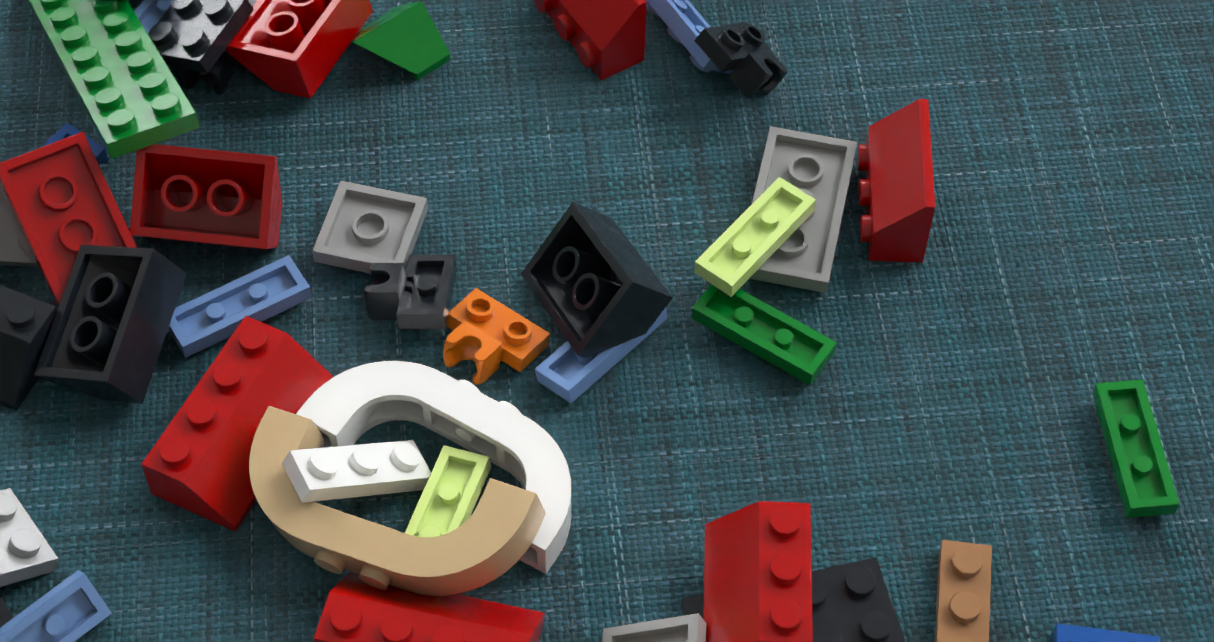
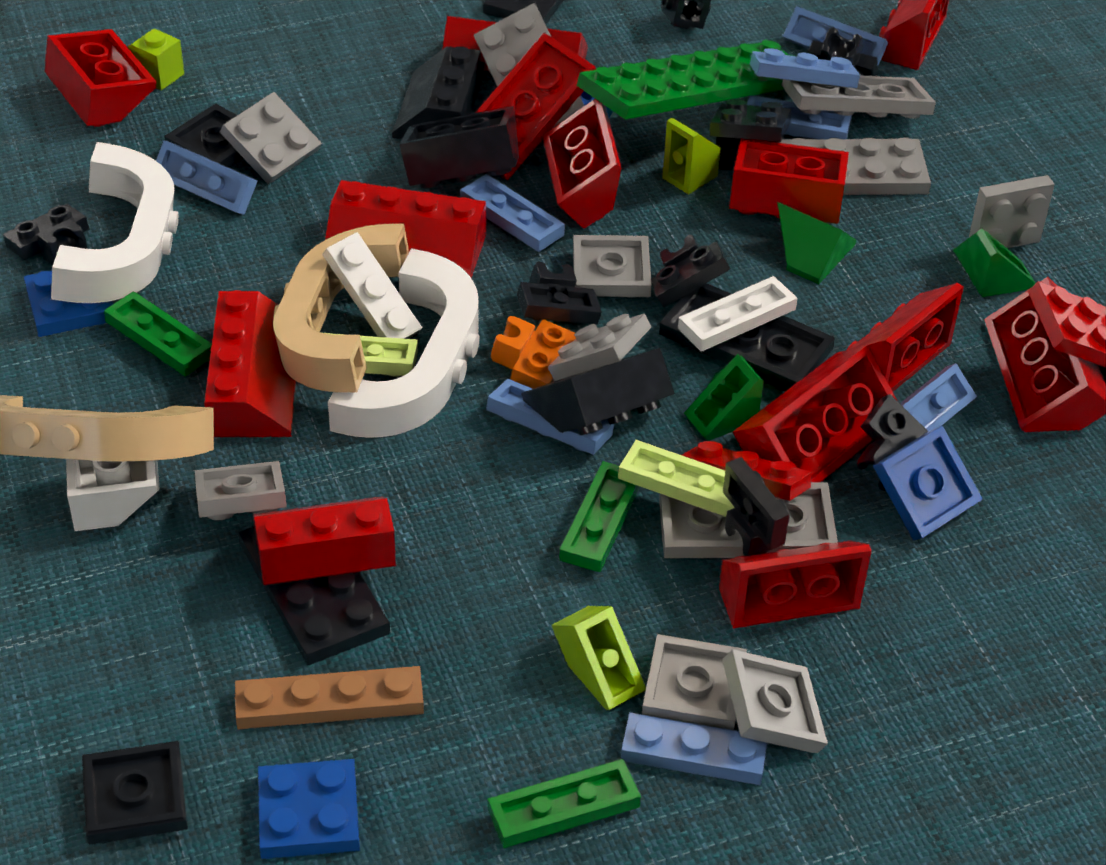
camera: 75 degrees right, 10 degrees down
(223, 107) = (688, 157): none -> lime slope
(423, 154) = (688, 269): none -> black plate
(516, 128) = (737, 313): none -> white plate
(526, 138) = (777, 351): none -> black plate
(530, 264) = (599, 346): none -> light grey plate
(618, 178) = (727, 401): none -> green slope
(674, 110) = (820, 415): none -> red slope
(741, 186) = (779, 477): none -> red plate
(796, 47) = (927, 483): none -> plate
(839, 179) = (756, 511): none -> black plate
(955, 374) = (599, 654): none -> lime slope
(1002, 305) = (689, 683): none -> light grey plate
(1050, 244) = (774, 701): none -> light grey plate
(1074, 329) = (693, 749): none -> medium blue plate

